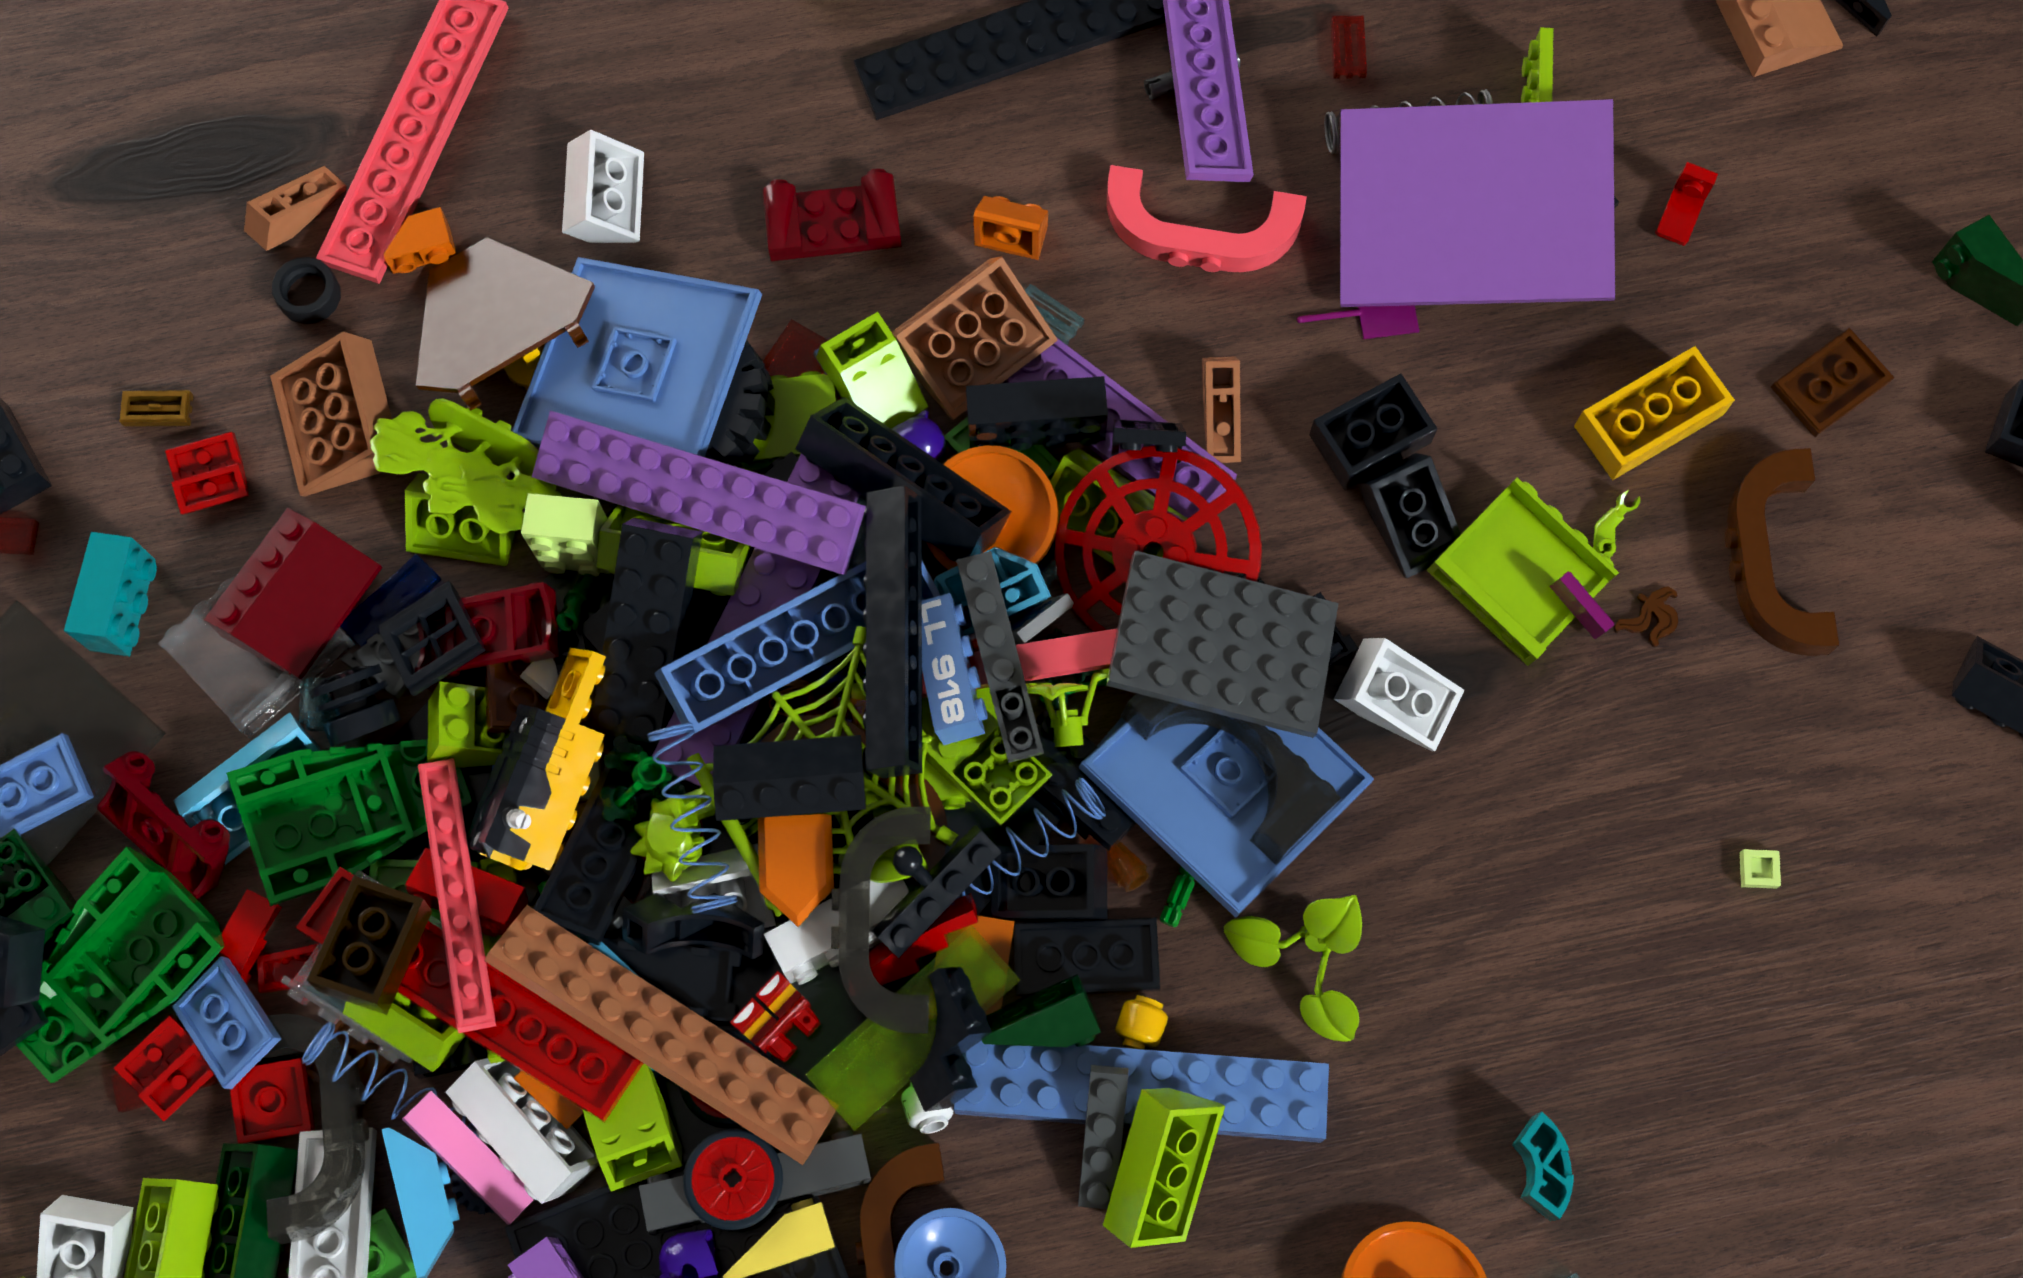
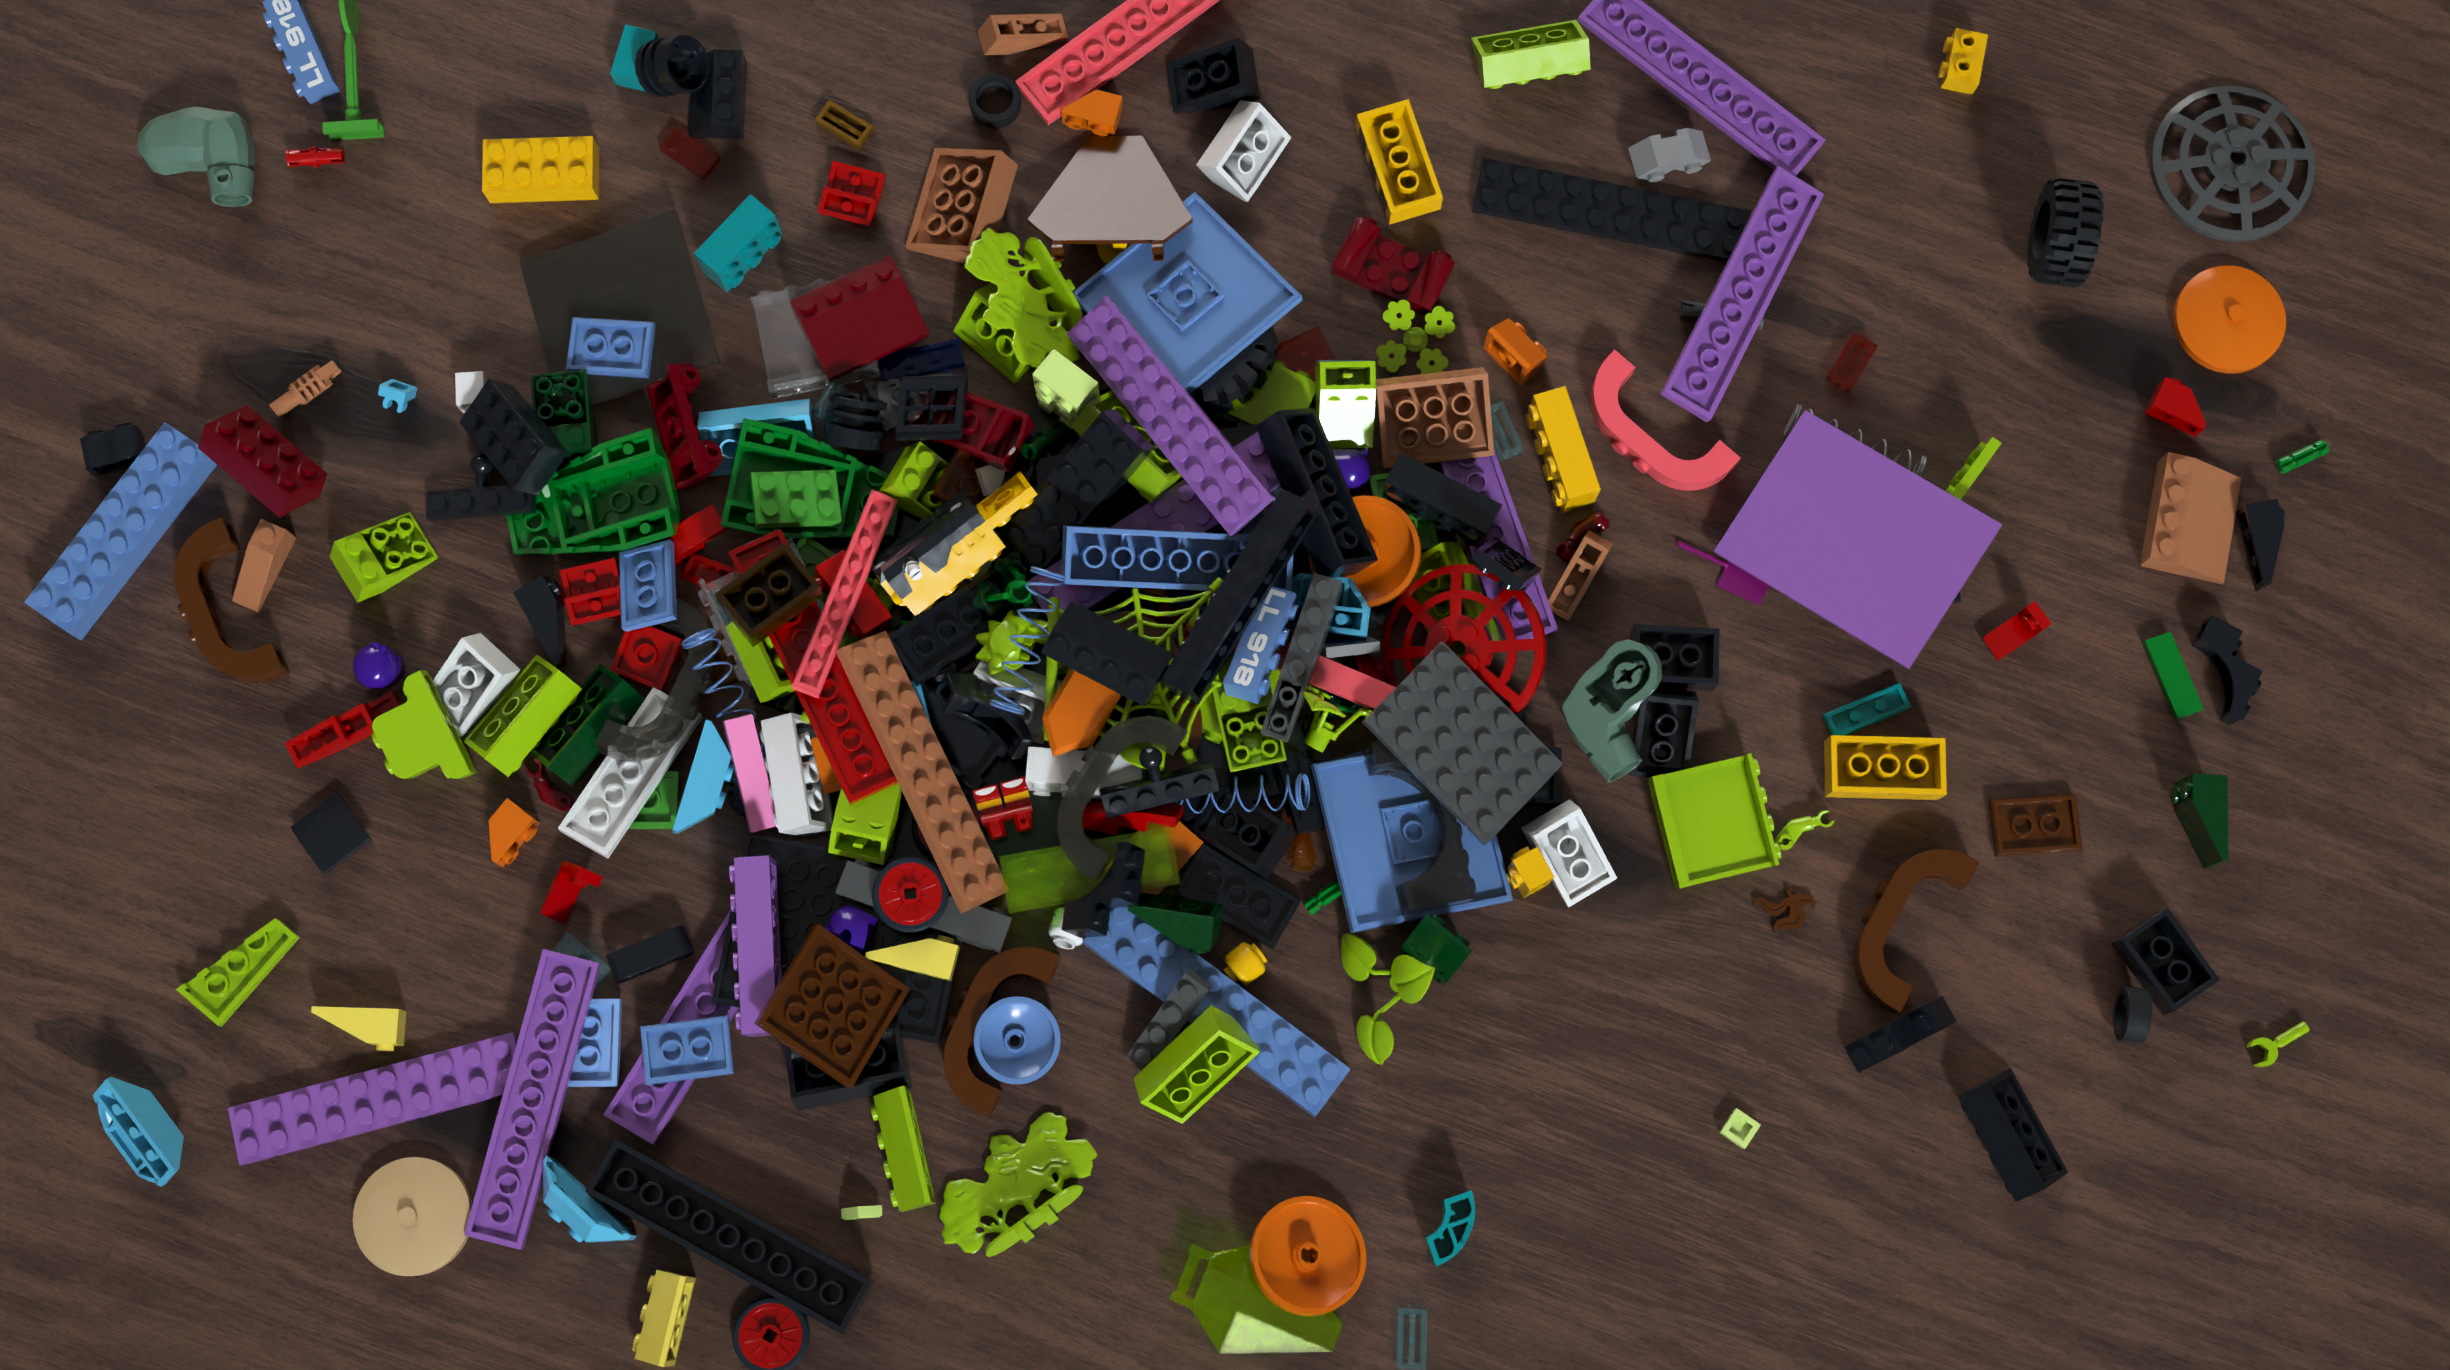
camera: 30 degrees right, 5 degrees up
(127, 1127) = (545, 613): none -> black slope
(338, 826) = (795, 499): none -> bright green plate
(525, 137) = (1214, 78): none -> black slope
(771, 110) = (1398, 161): none -> yellow brick
(900, 273) = (1415, 338): none -> lime plant
(1070, 627) = (1368, 665): none -> dark red dish
(1125, 292) = (1563, 450): none -> yellow brick
(1201, 347) = (1595, 521): none -> dark red arm
(1334, 873) = (1437, 947): none -> dark green slope
(1337, 511) = (1607, 699): none -> sand green piece
(1374, 737) = (1528, 871): none -> yellow brick
(1582, 605) = (1738, 870): magenta tile -> none
(1594, 371) = (1867, 711): none -> teal tile
(1852, 670) = (1900, 1034): none -> black arch
(1859, 160) = (2172, 675): none -> green tile
(1925, 125) = (2240, 680): none -> black arch

